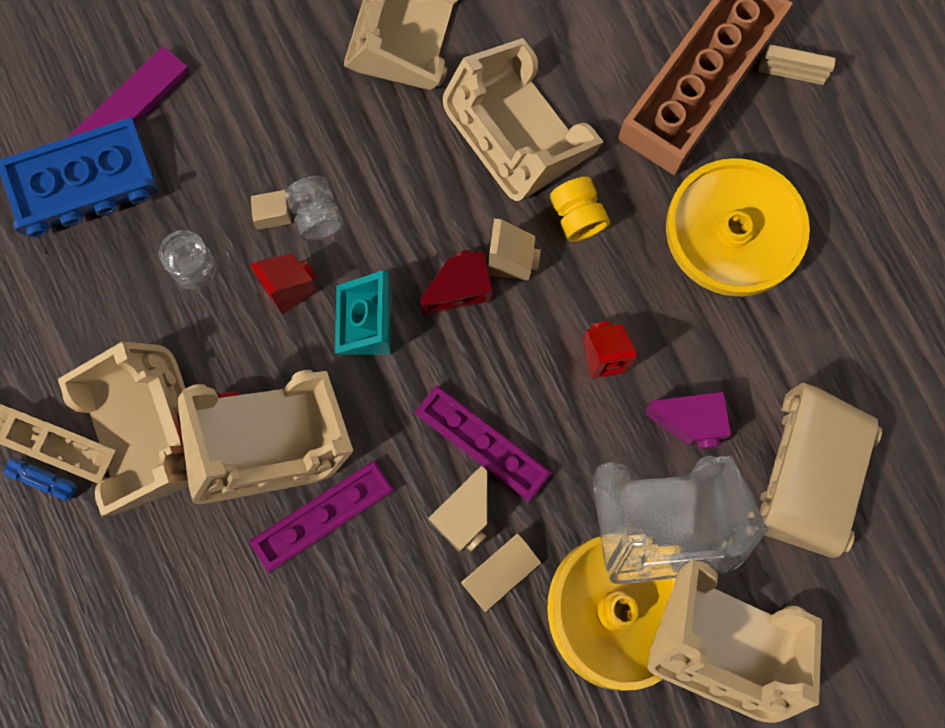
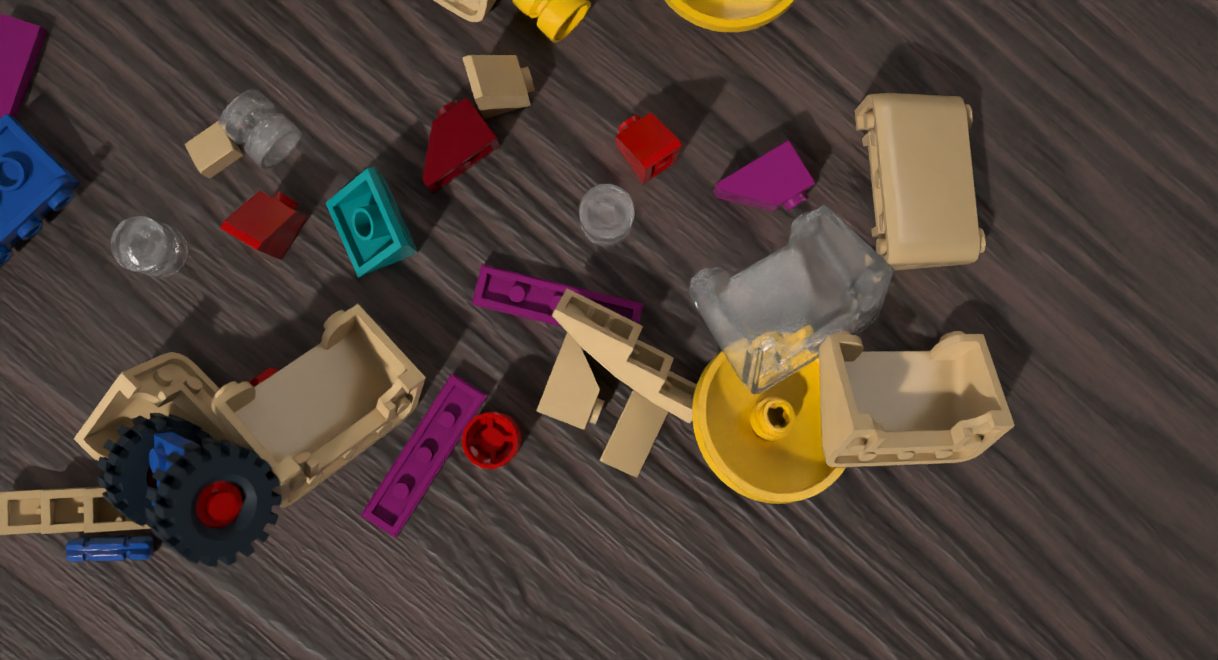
camera: 25 degrees left, 10 degrees up
(137, 457) = (190, 488): none -> black plate
(382, 526) = (491, 440): none -> red wheel
(515, 493) = (616, 346): none -> tan slope
(552, 388) = (606, 215): none -> clear wheel

